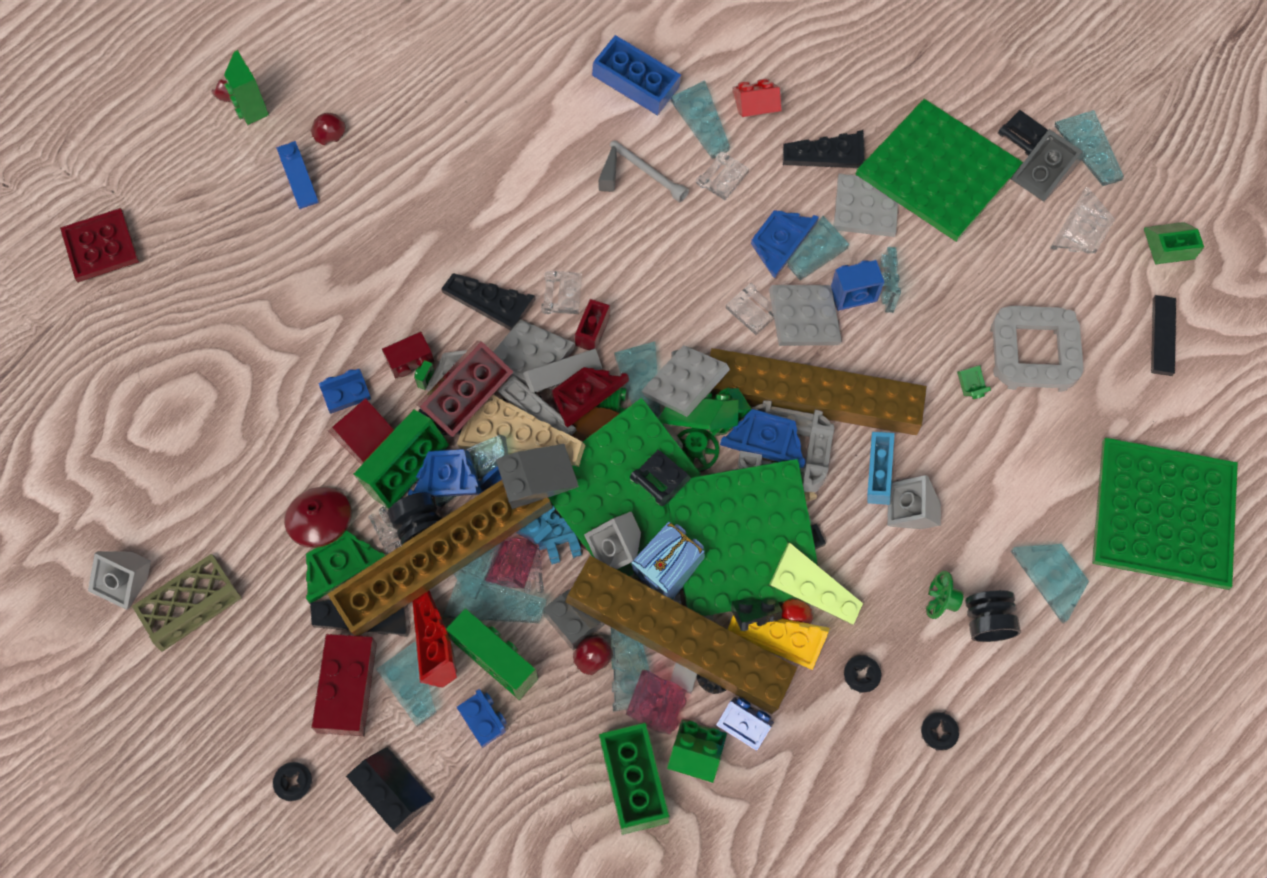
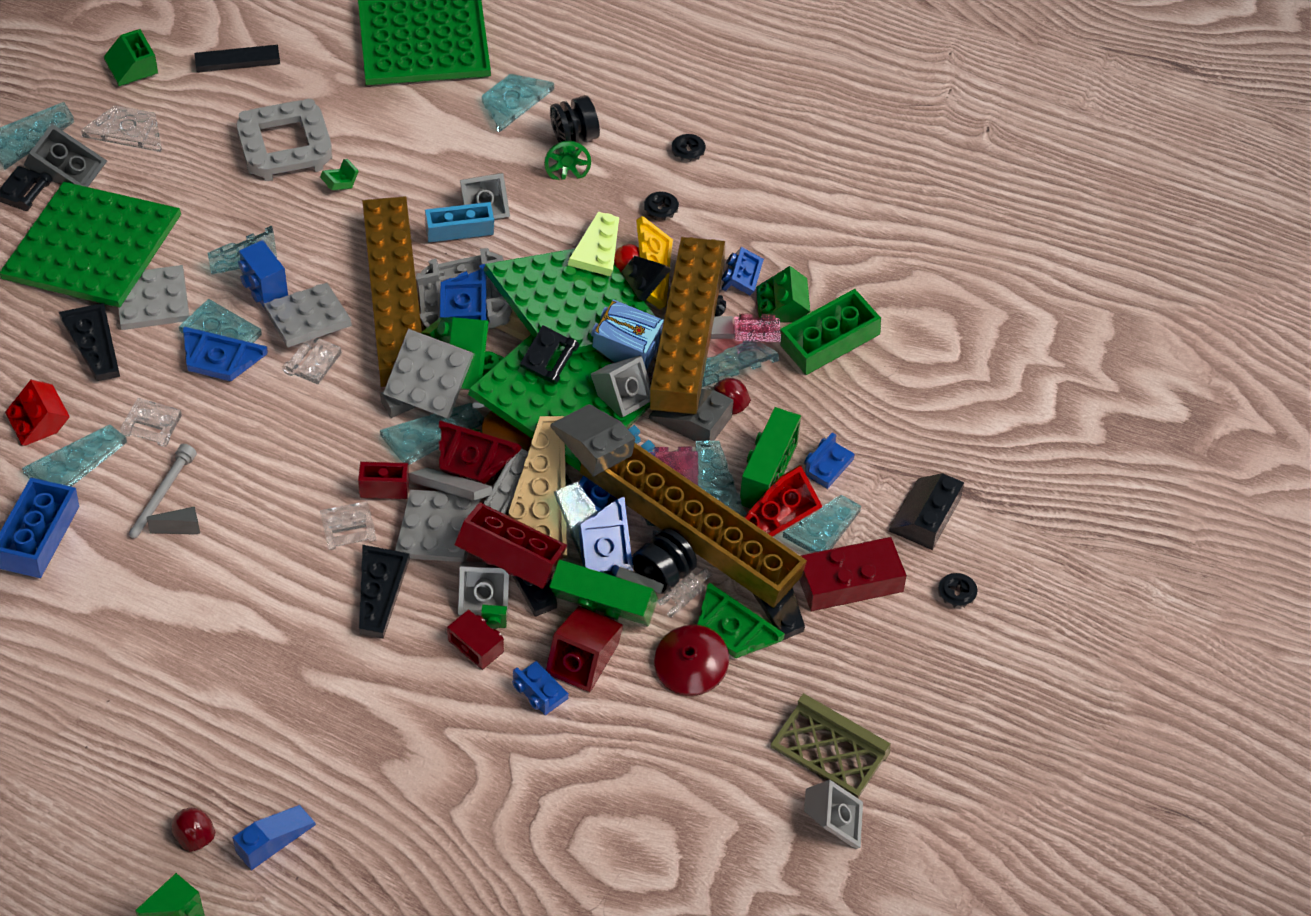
camera: 110 degrees left, 15 degrees down
(410, 483) = (632, 576): none -> dark grey plate

